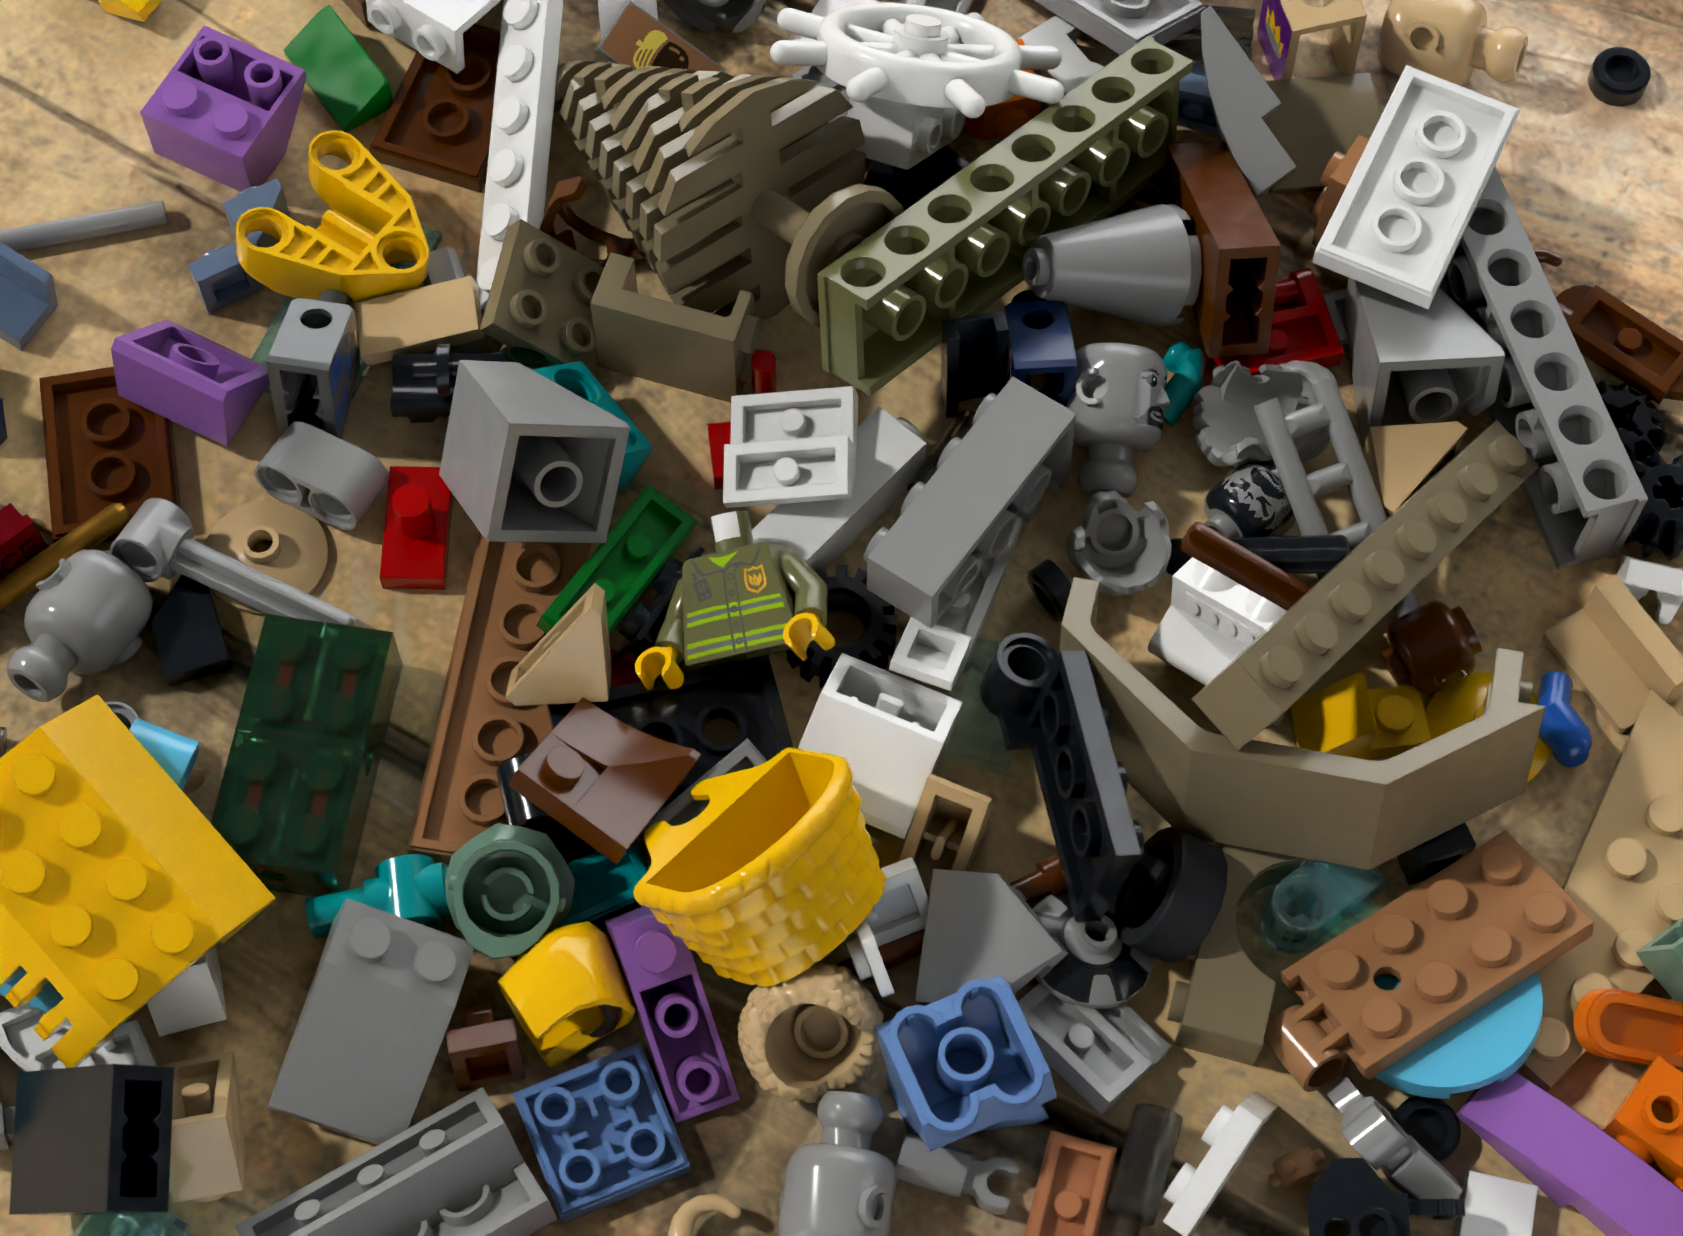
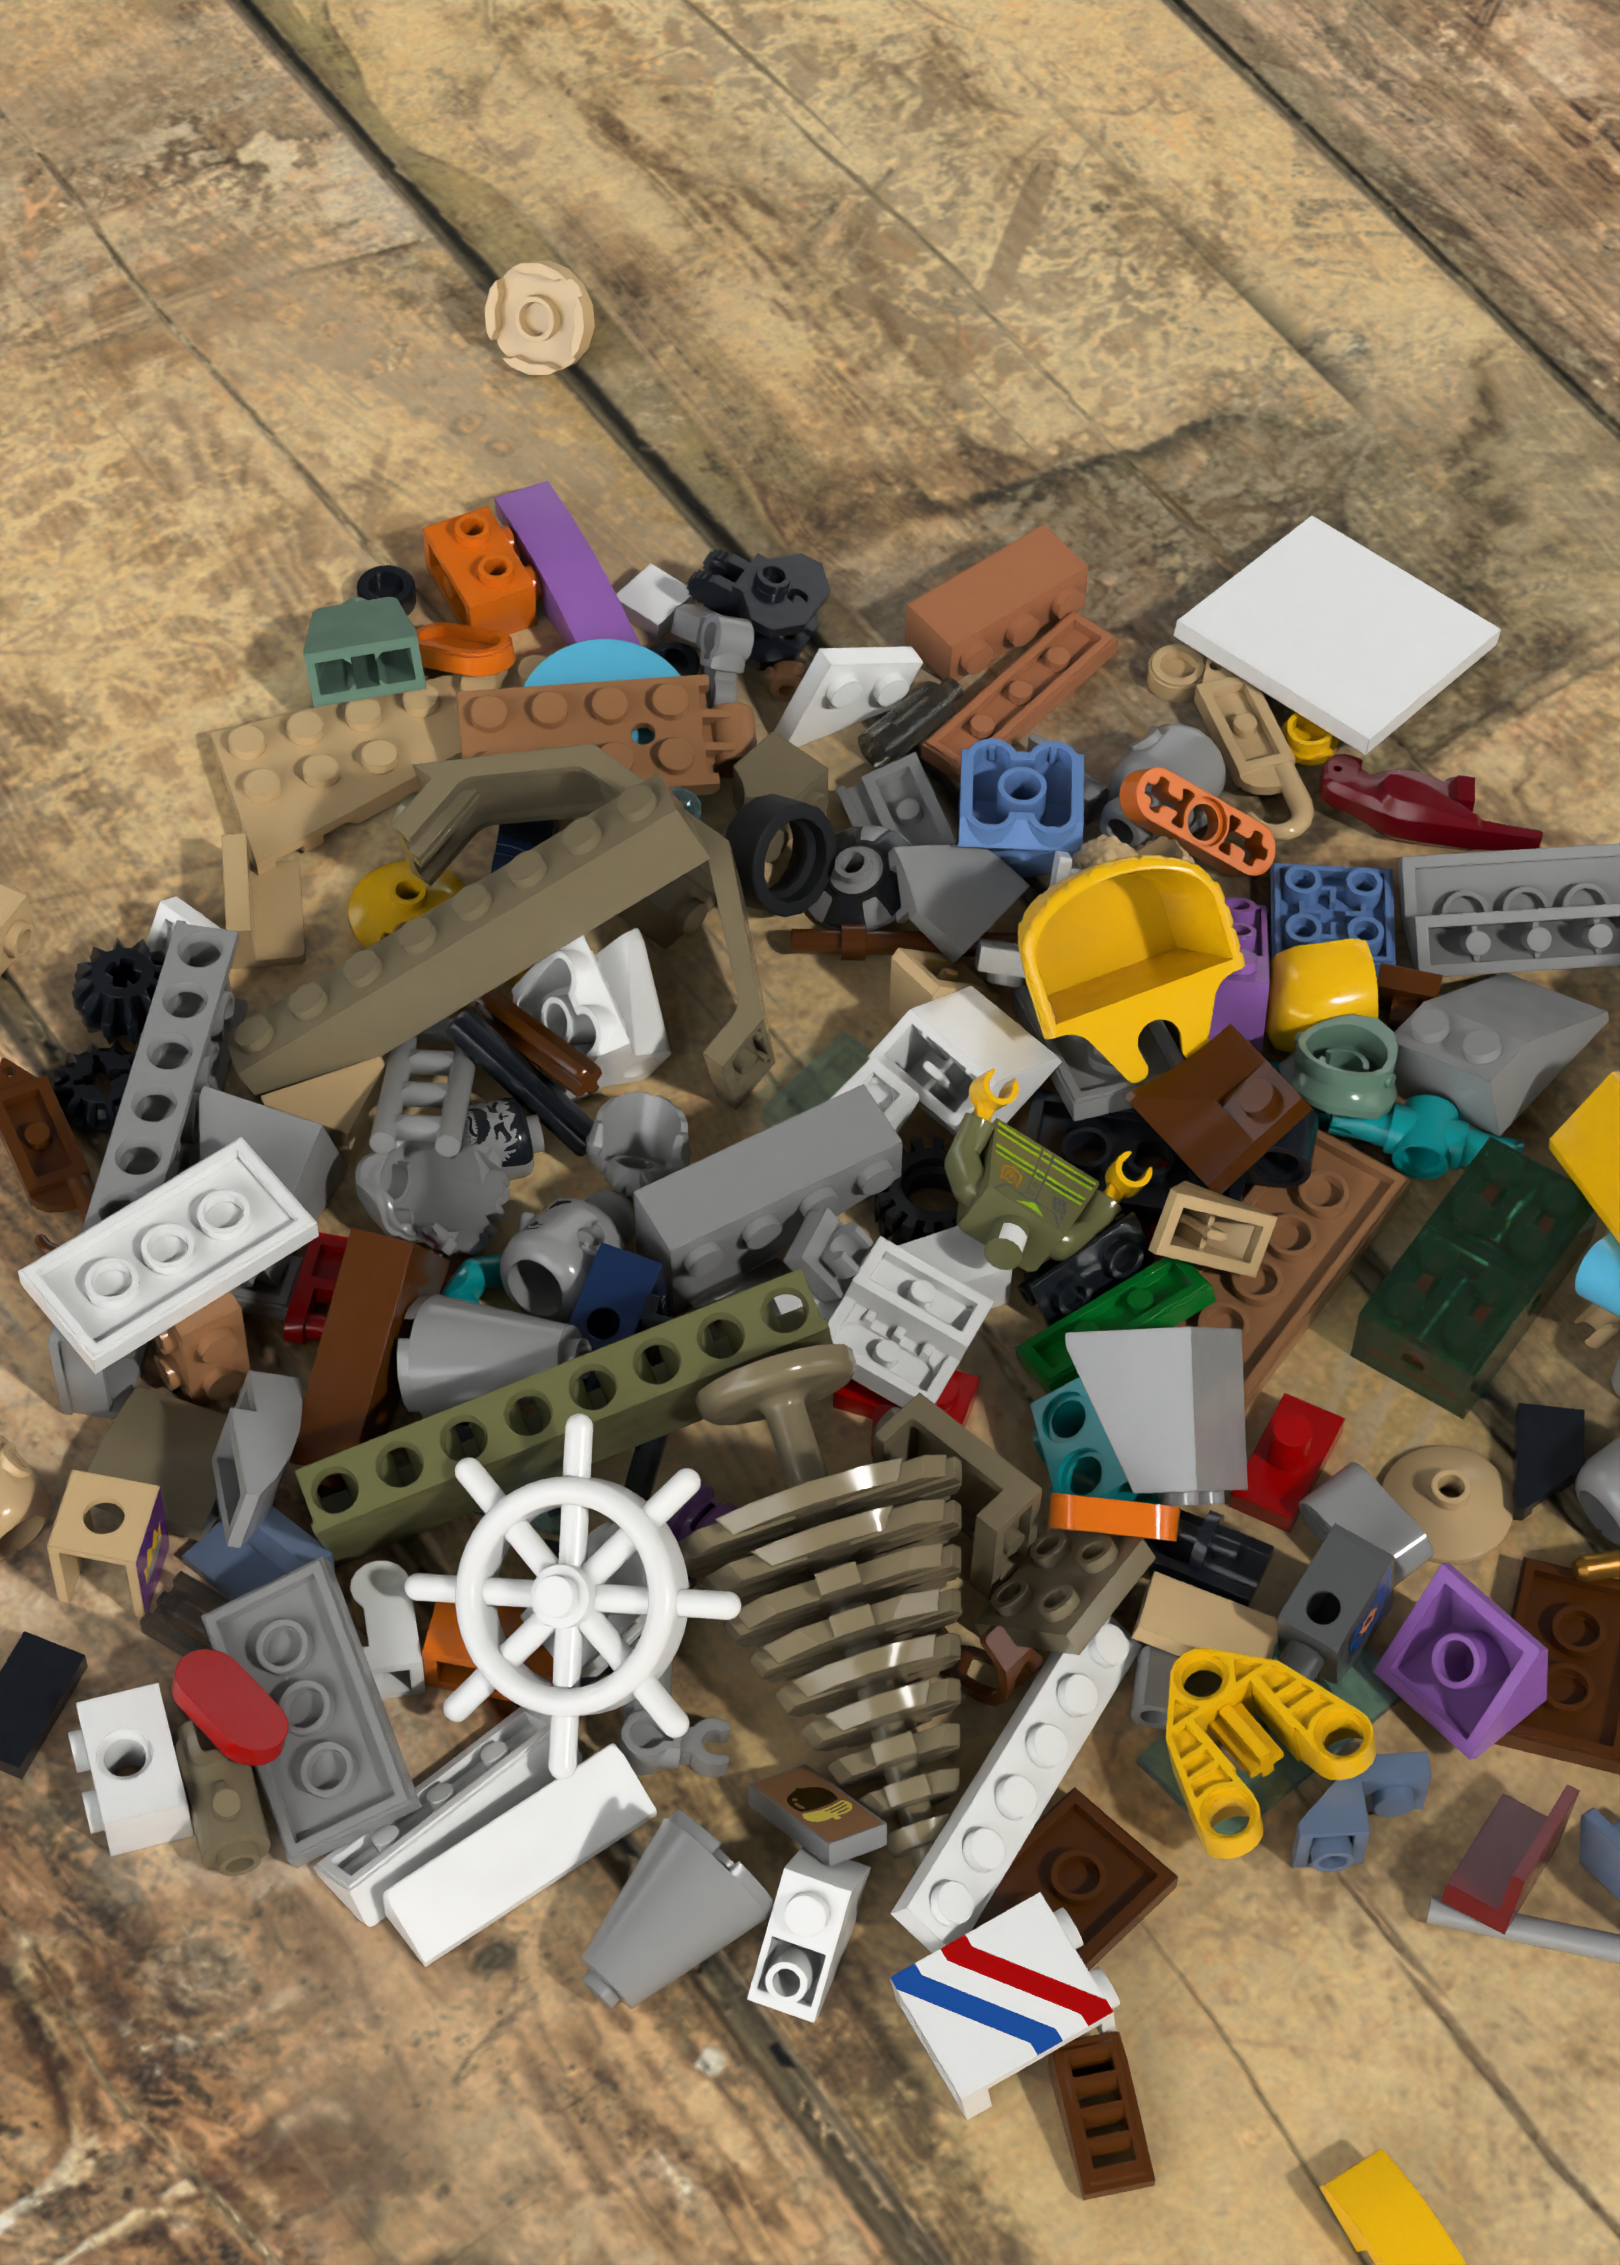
camera: 155 degrees left, 10 degrees down
(105, 251) = (1507, 1860): none -> panel
(161, 544) = (1549, 1509): light grey axle -> none
(225, 110) = (1328, 1960): medium lavender slope -> none
(339, 71) = (1173, 1993): green slope -> none
(528, 334) = (1113, 1517): none -> orange beam
(814, 1113) = (1172, 821): none -> orange beam
(884, 460) = (828, 1253): none -> light grey tile
(1050, 588) = (717, 1133): black tile -> none
(1055, 712) = (805, 956): black hinge -> none
(1561, 725) = (352, 877): blue arm -> none

